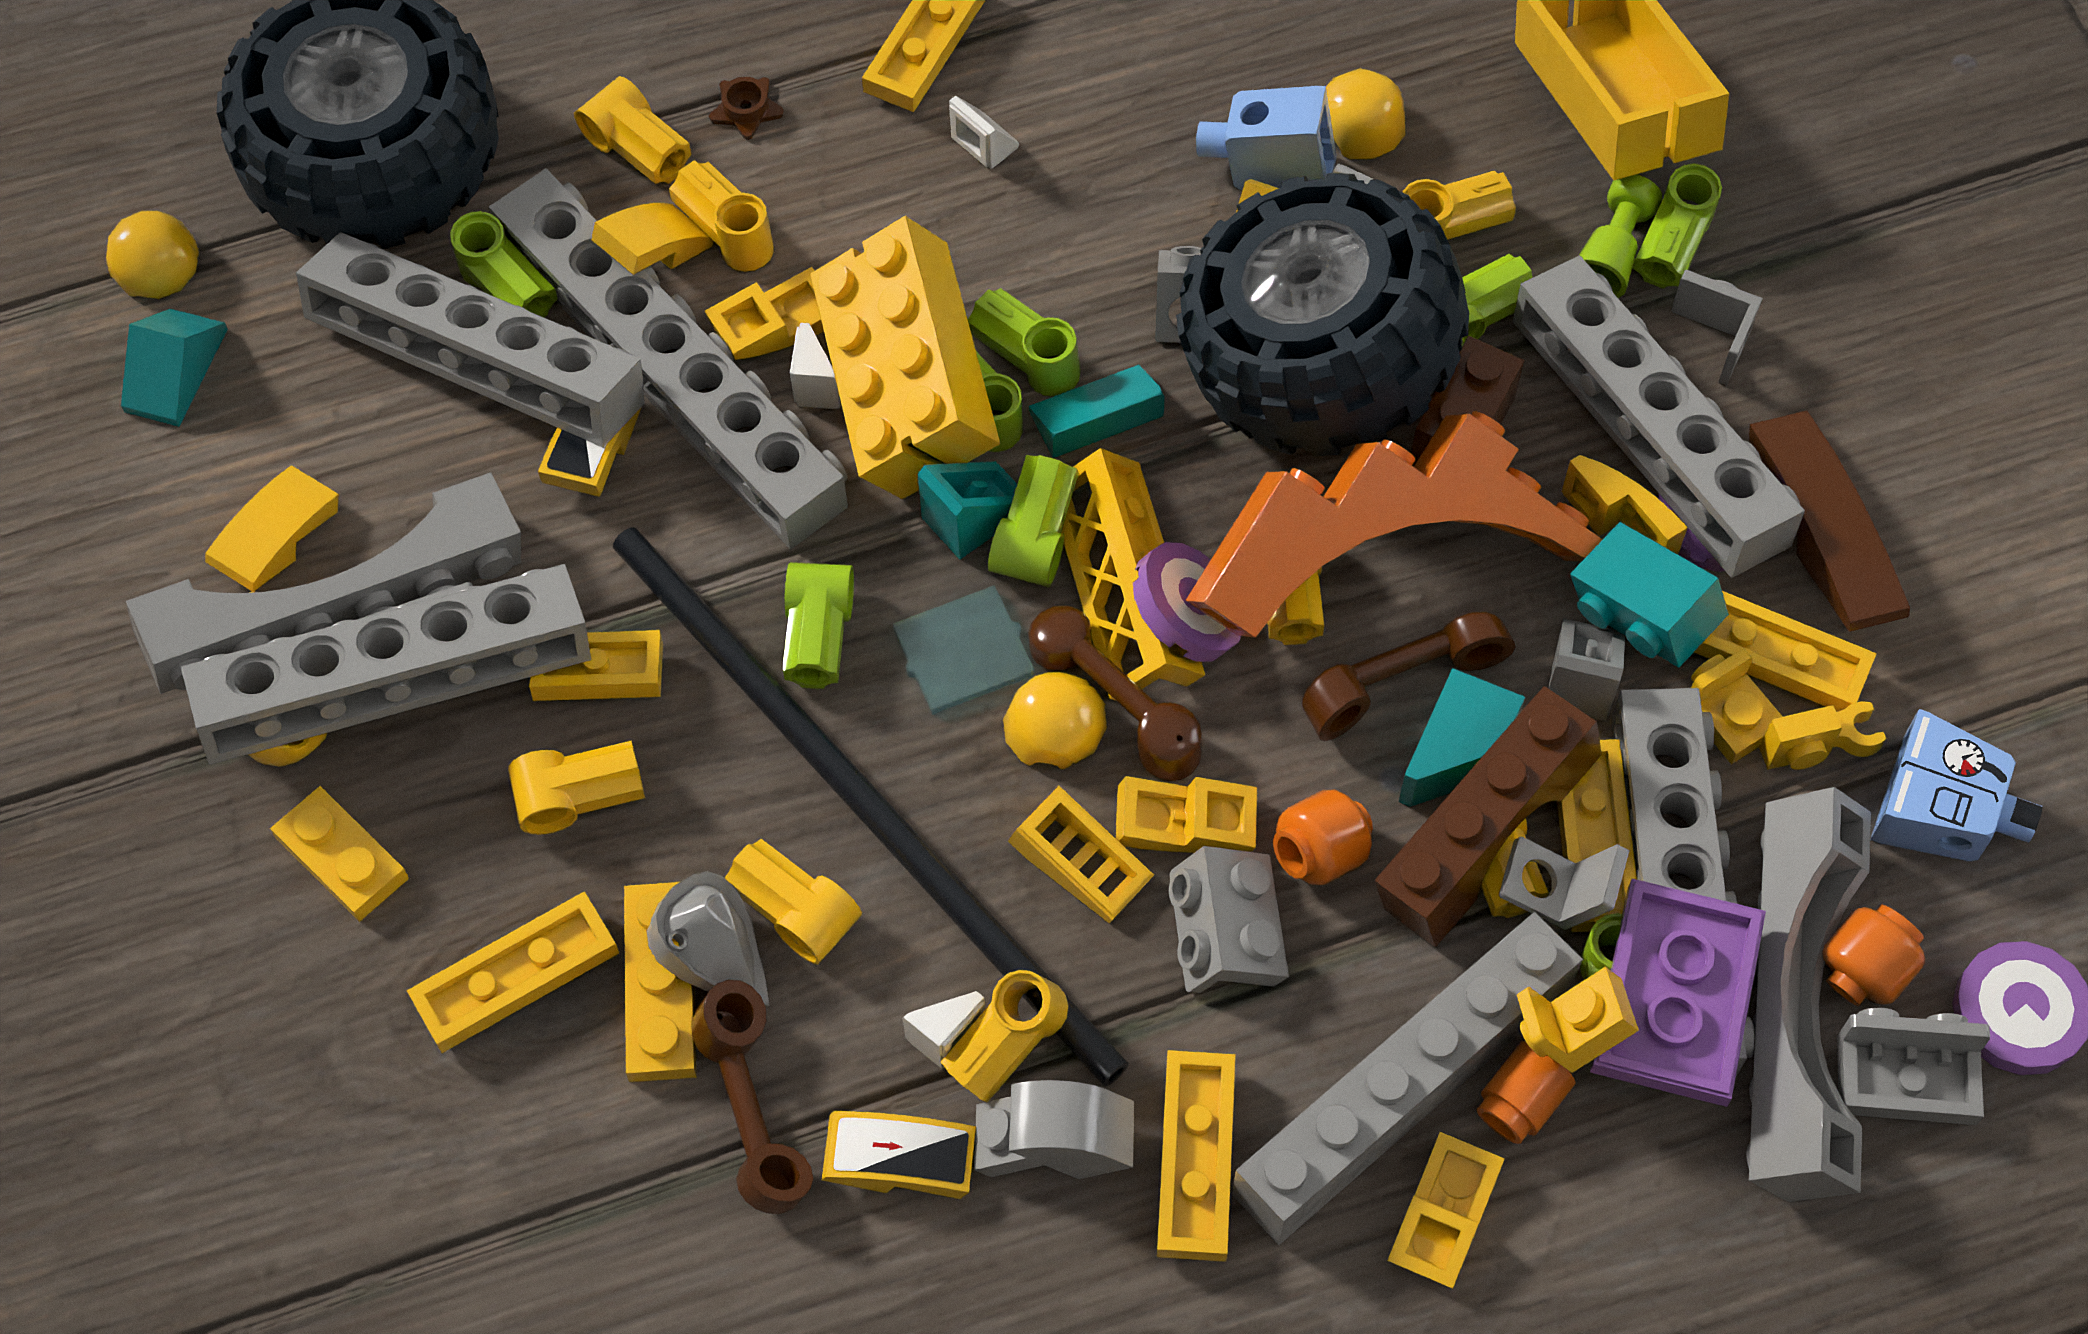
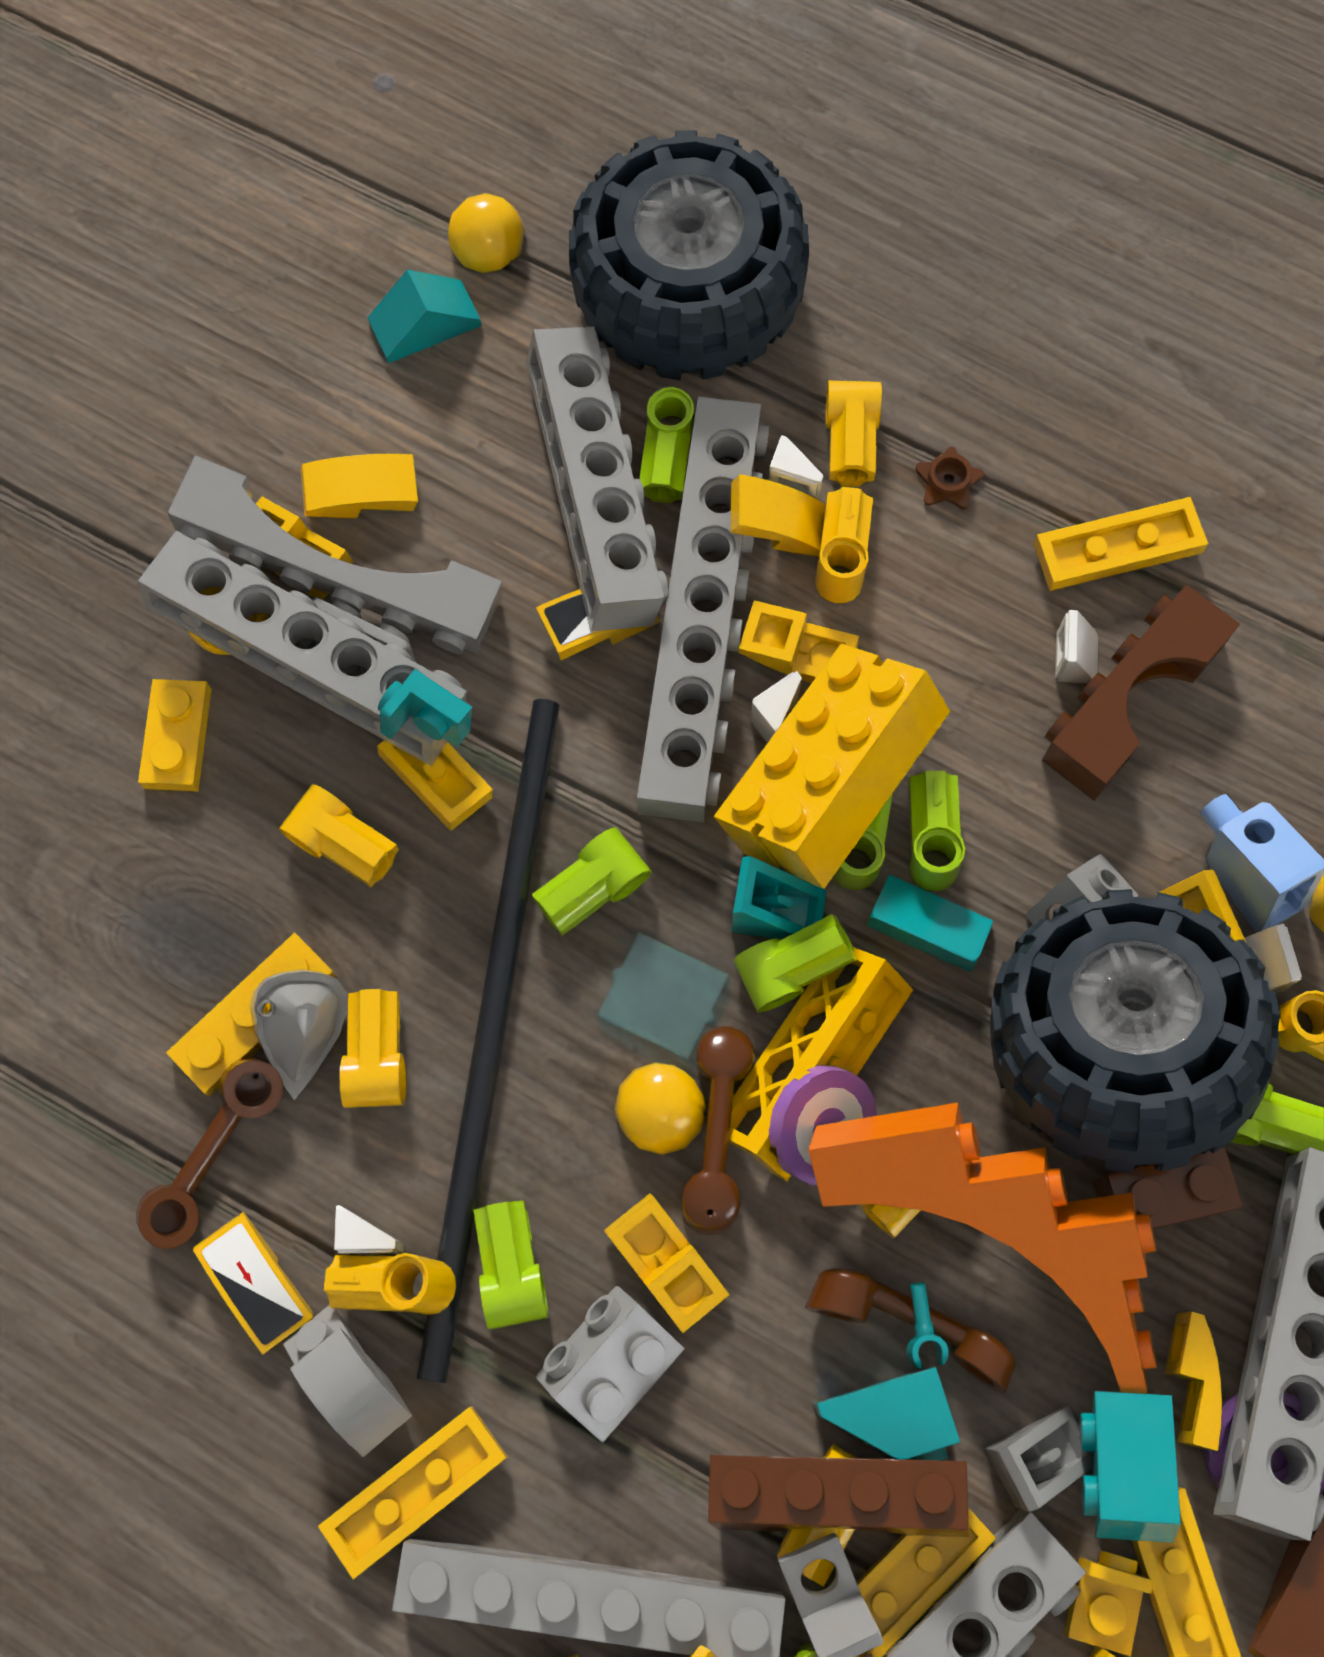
camera: 50 degrees right, 10 degrees up
(513, 972) = (178, 917): yellow plate -> none
(558, 587) = (431, 706): none -> teal bracket
(623, 190) = (794, 470): none -> white slope
(1069, 170) = (1178, 645): none -> reddish brown arch
(1079, 823) = (572, 1267): yellow slope -> none
(1092, 941) = (511, 1281): none -> lime piece
(1323, 837) = (727, 1379): orange head -> none
(1433, 660) = (923, 1328): none -> teal hand

